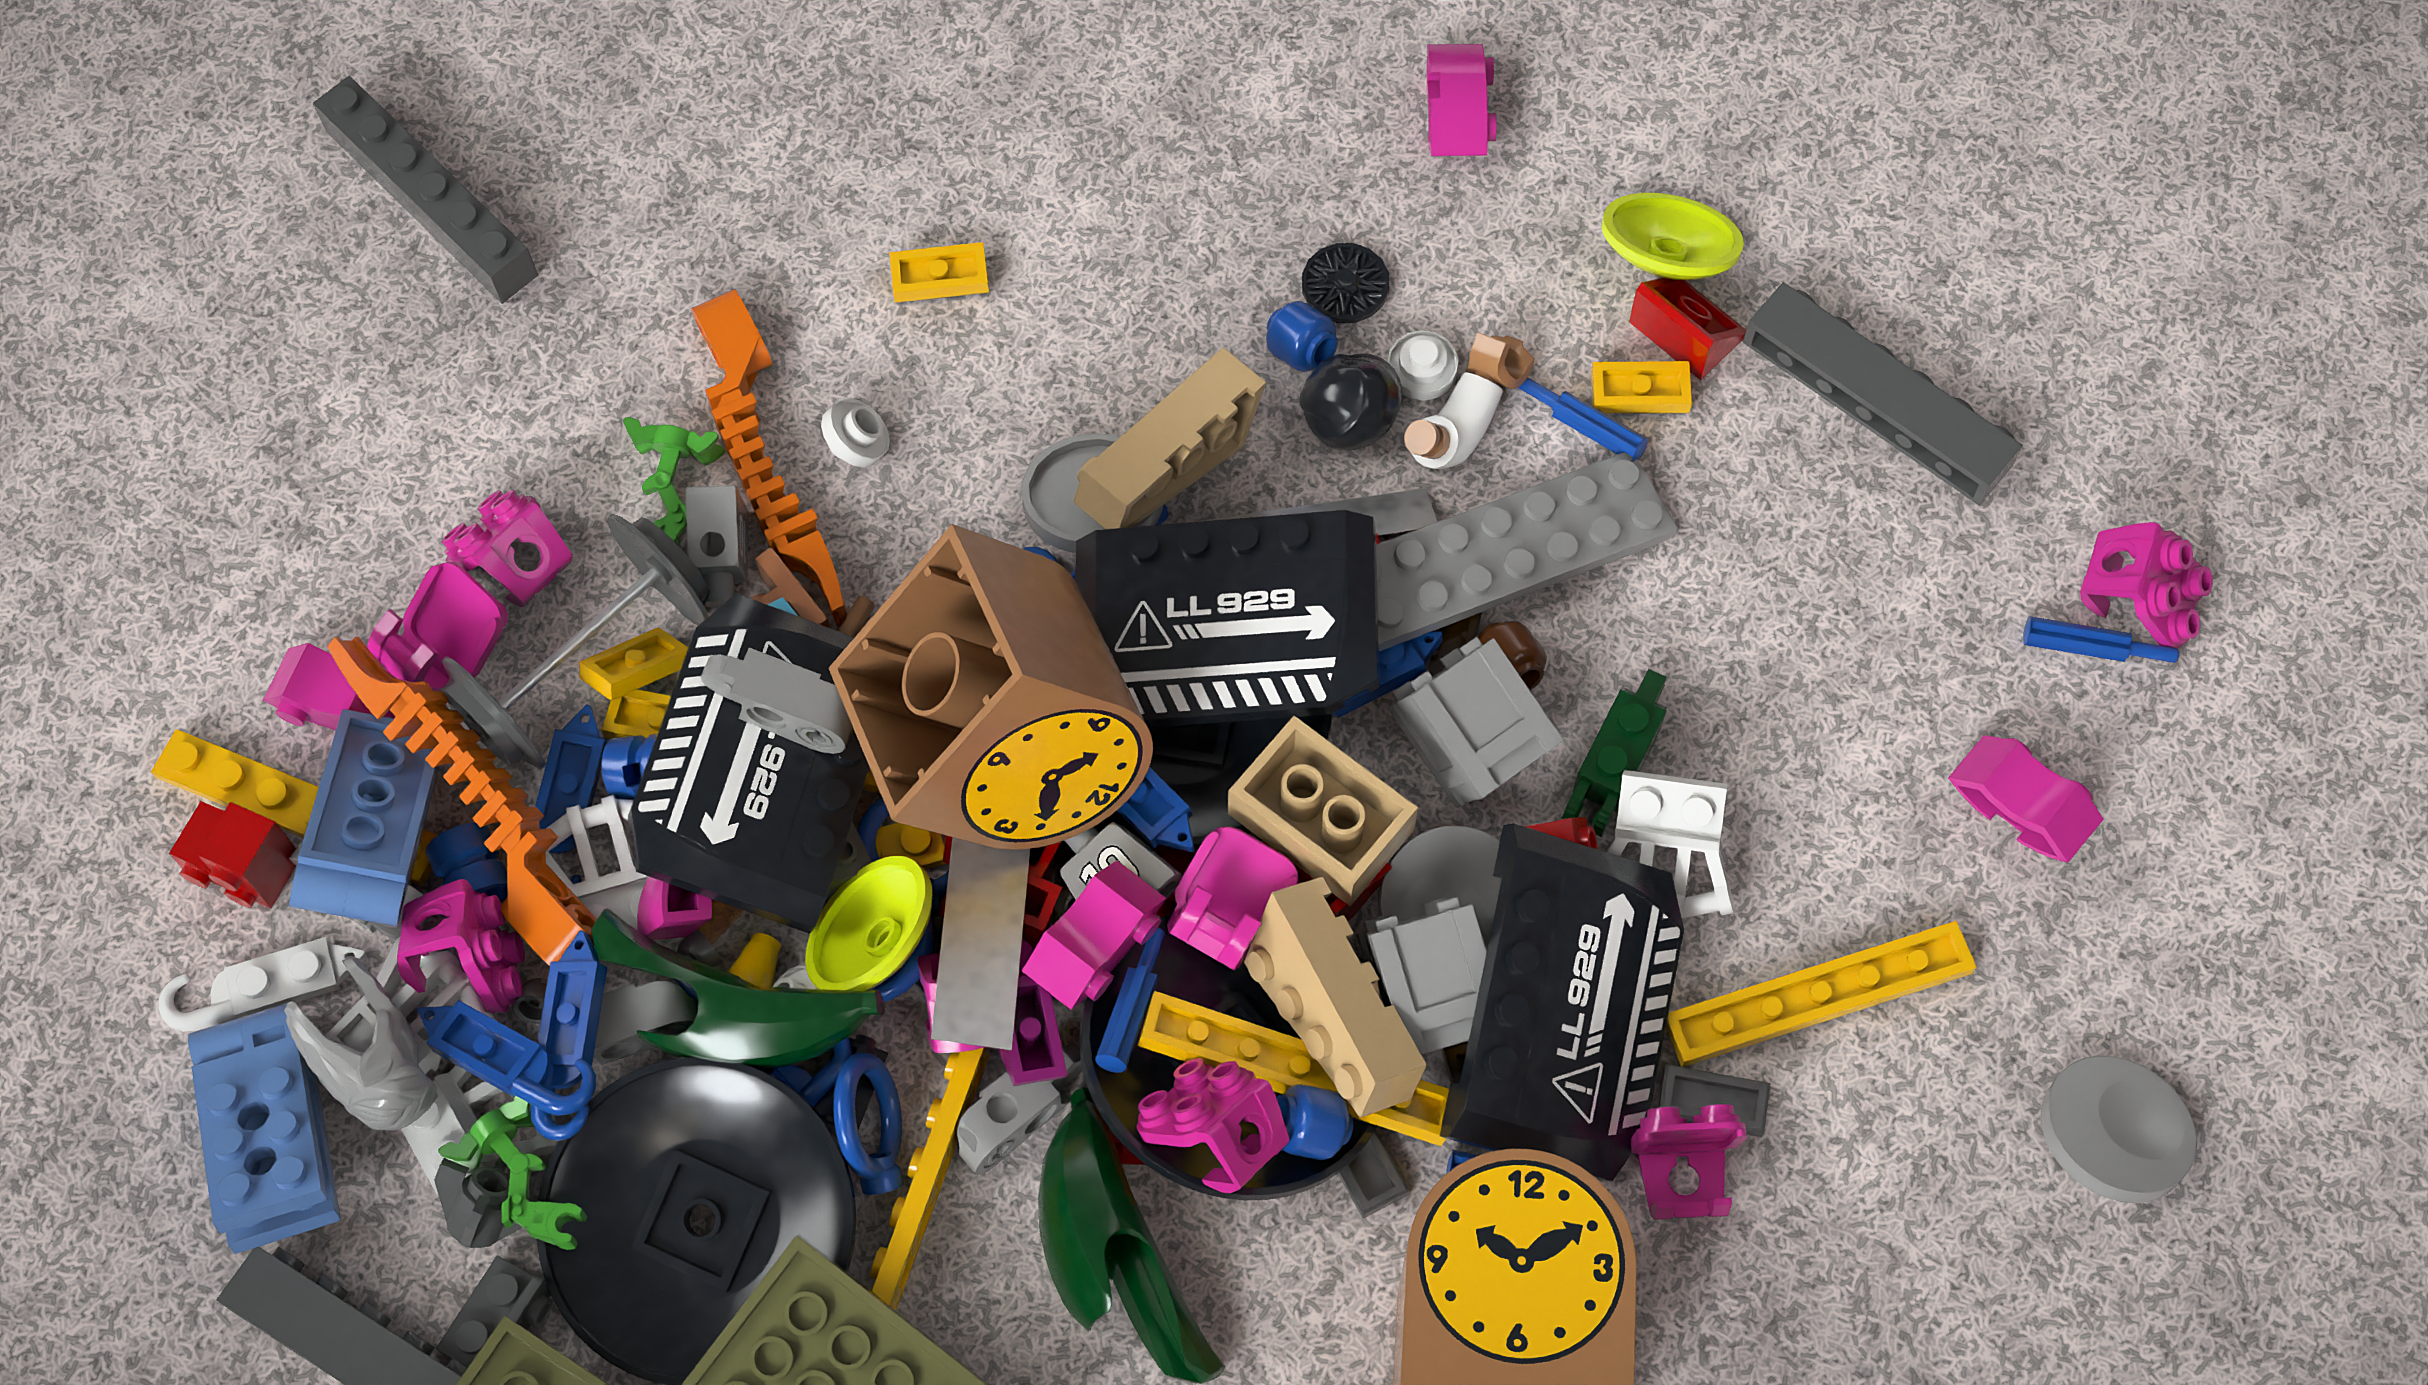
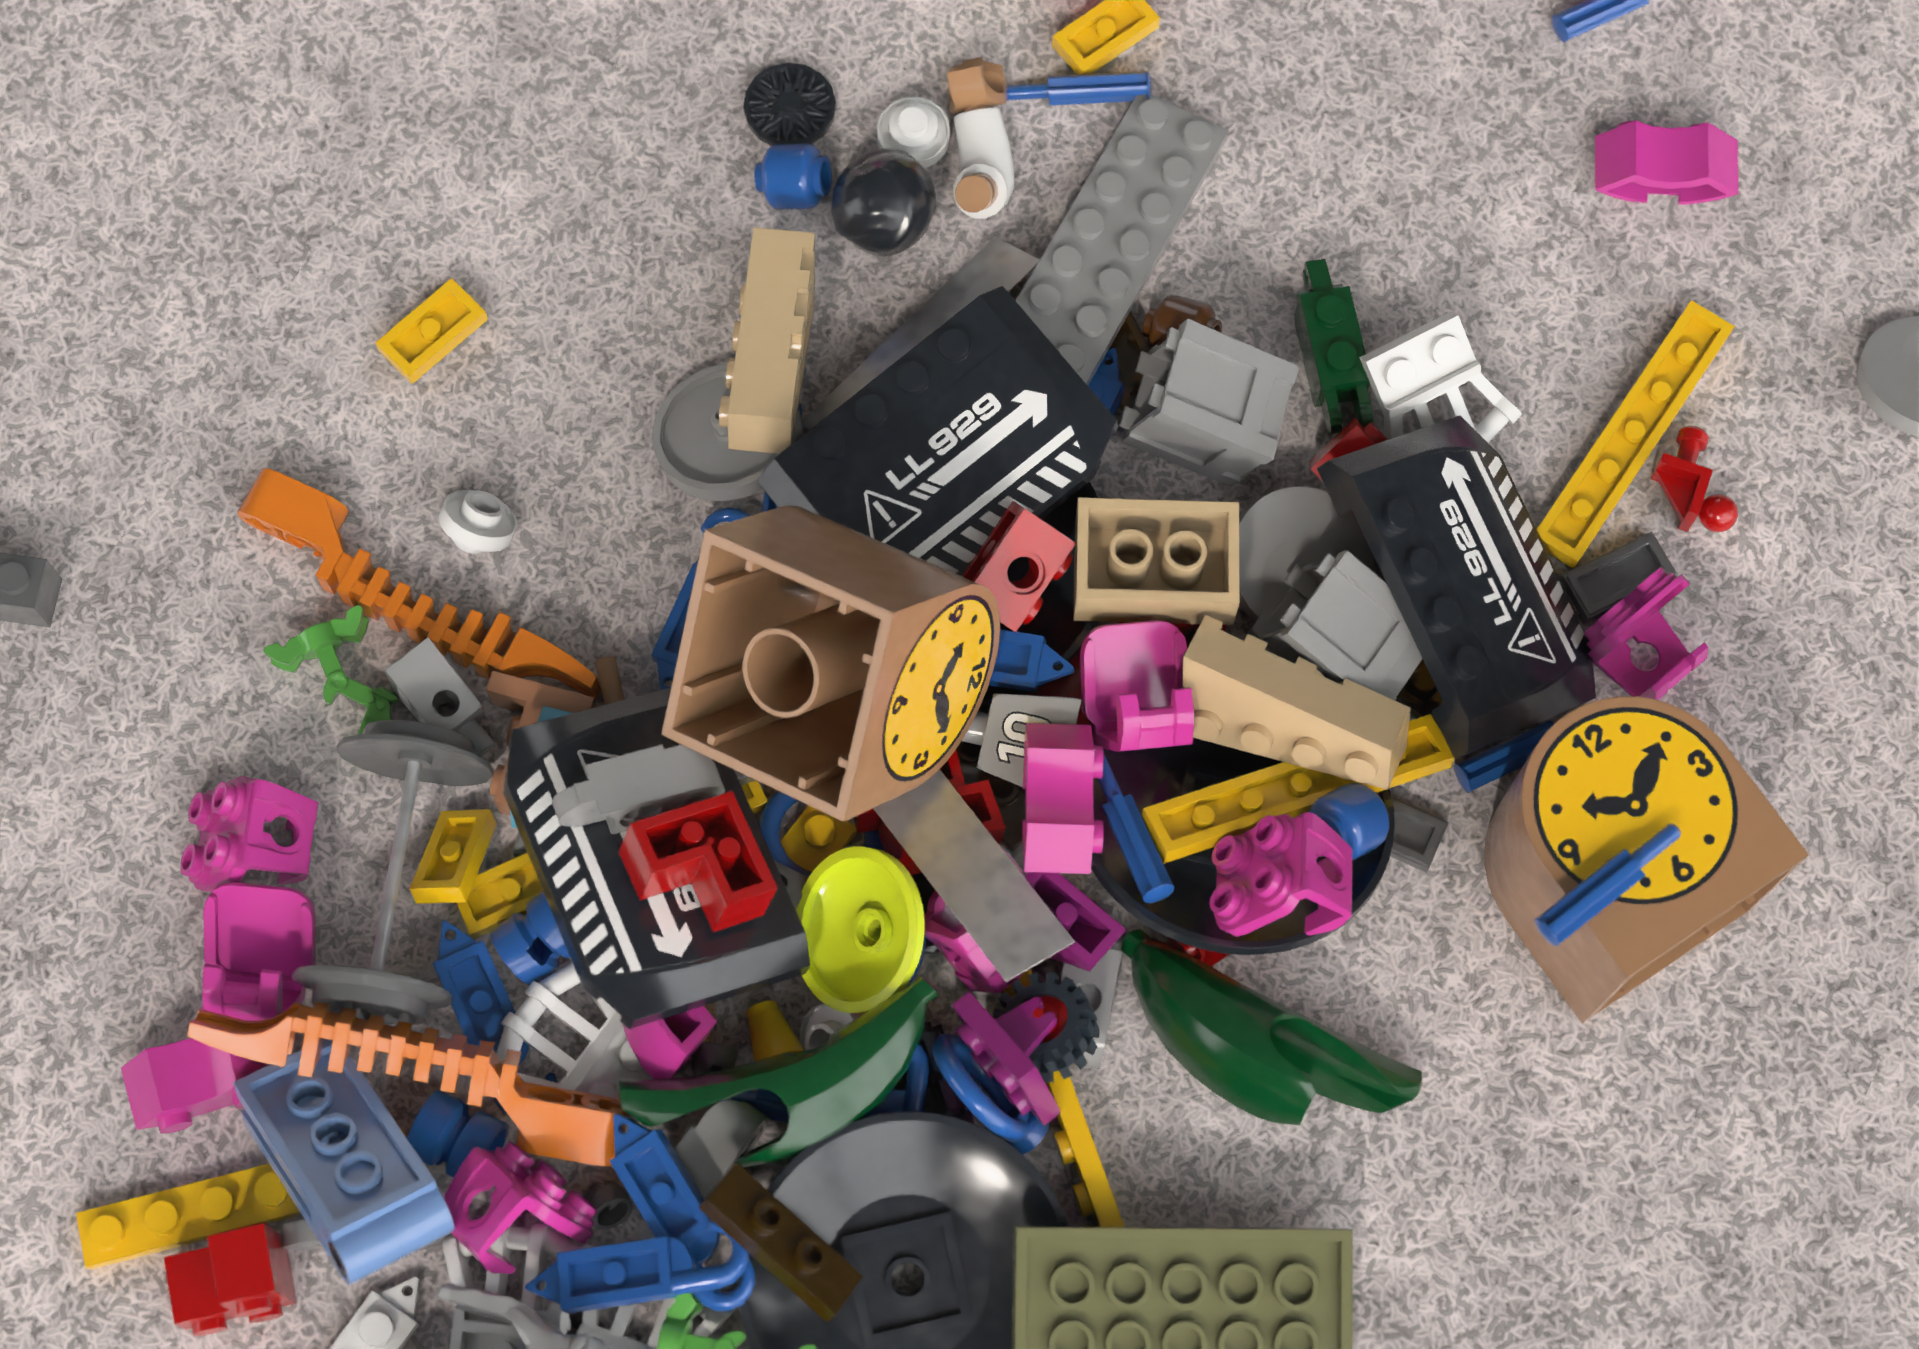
camera: 40 degrees left, 5 degrees up
(617, 1112) = (781, 1242): none -> dark brown plate
(789, 771) = (702, 847): none -> red brick
(926, 1104) = (1031, 1038): none -> plate
(1231, 716) = (1016, 536): none -> brick
(1434, 1302) = (1601, 888): none -> blue axle
(1830, 1066) = (1687, 484): none -> red piece

